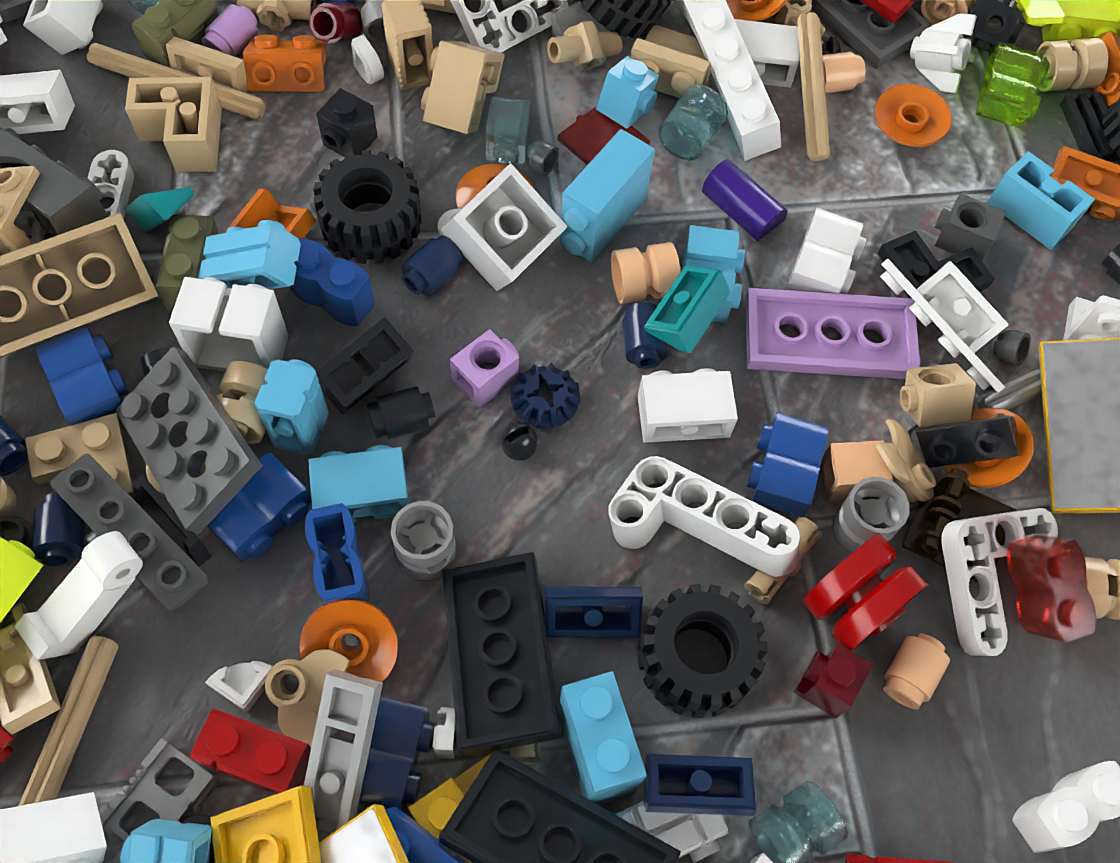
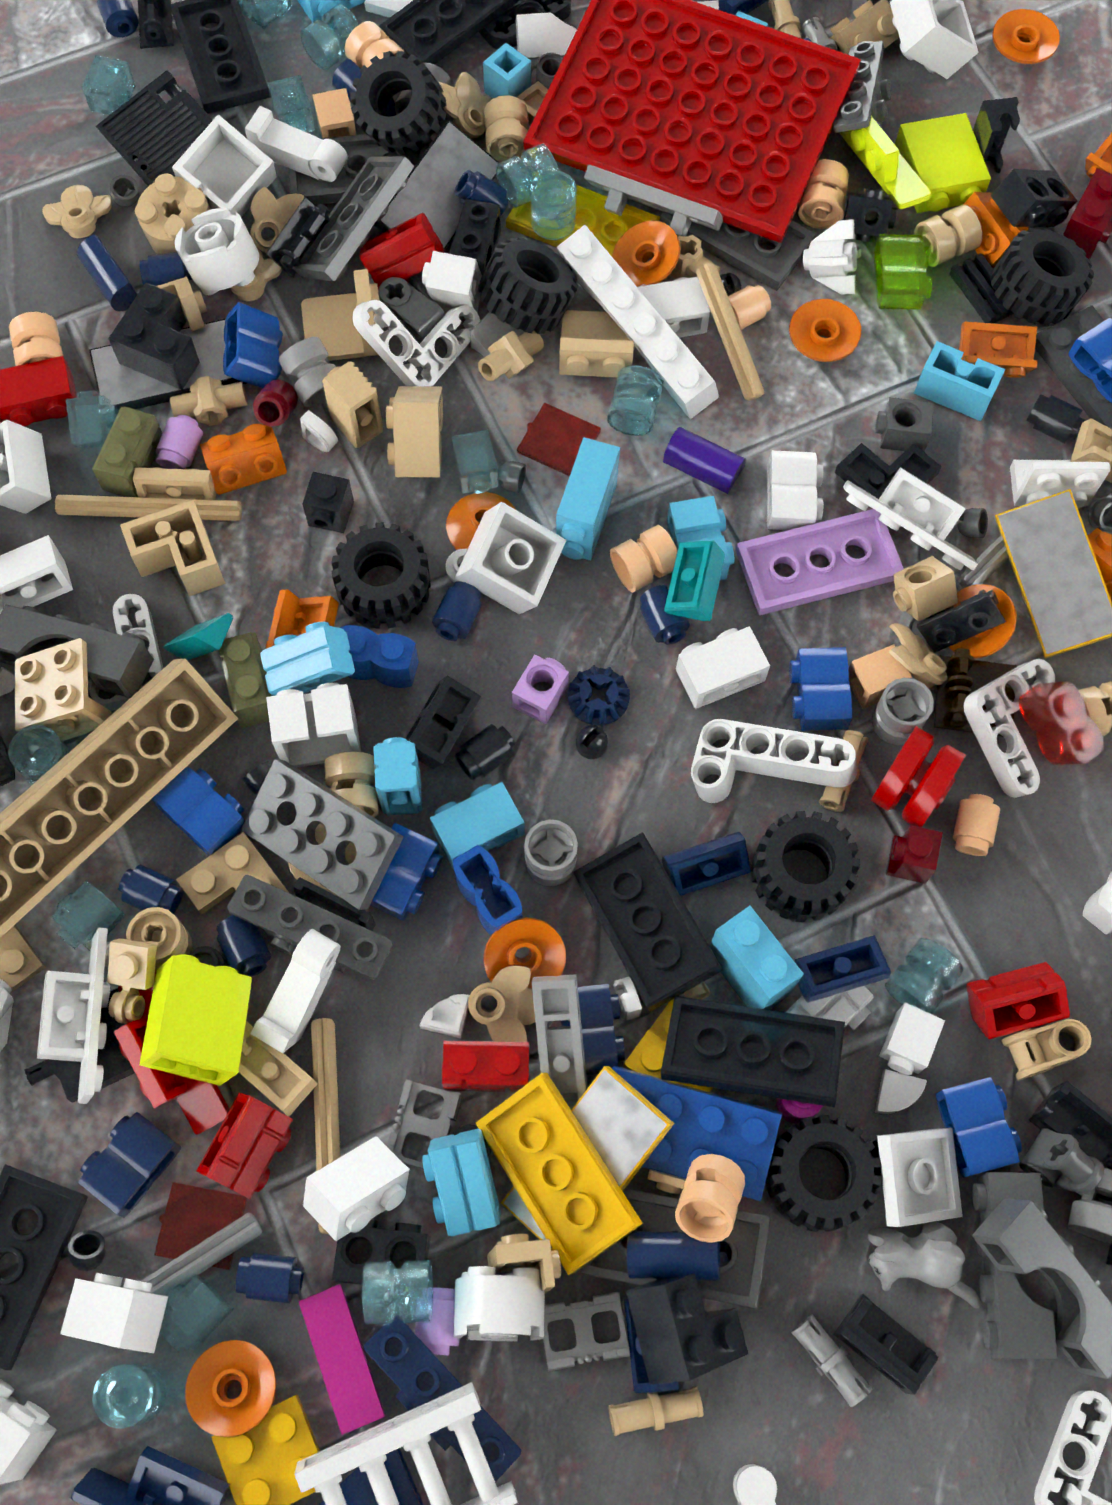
camera: 15 degrees left, 5 degrees up
(628, 92) = (568, 390): medium azure brick -> none

